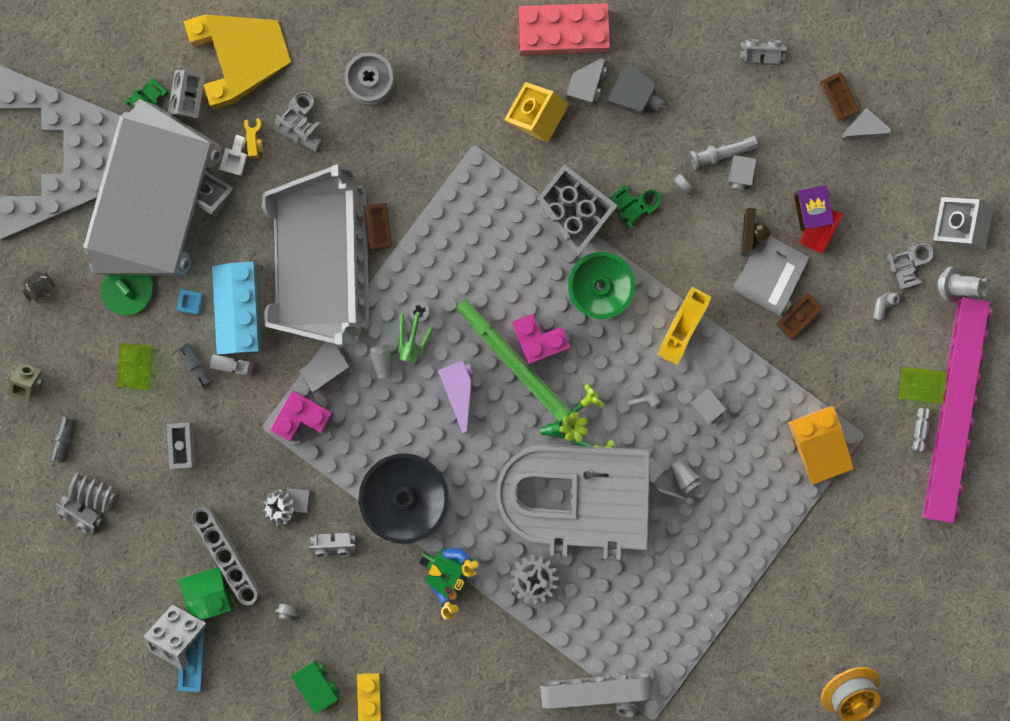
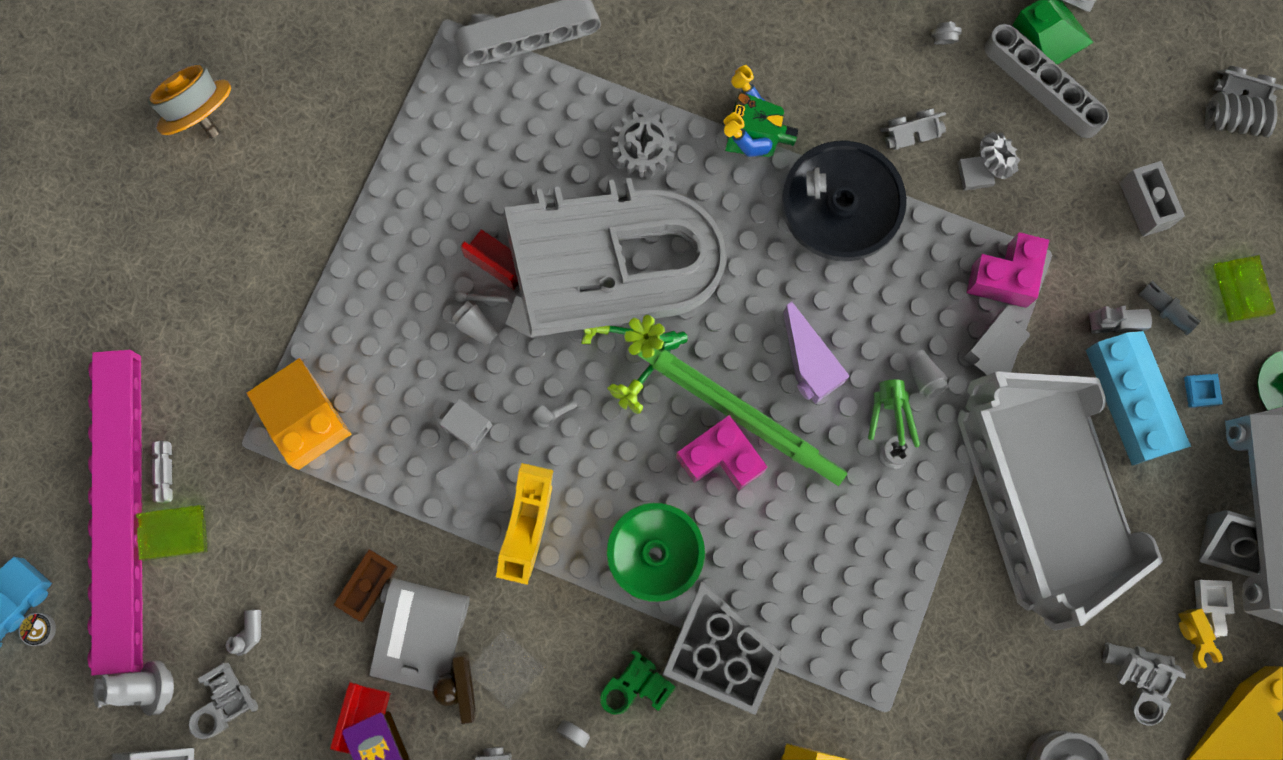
camera: 160 degrees right, 10 degrees down
(377, 226) = (988, 558): reddish brown plate -> none
(421, 513) = (816, 183): none -> light grey plate
(662, 523) = (492, 257): none -> red panel

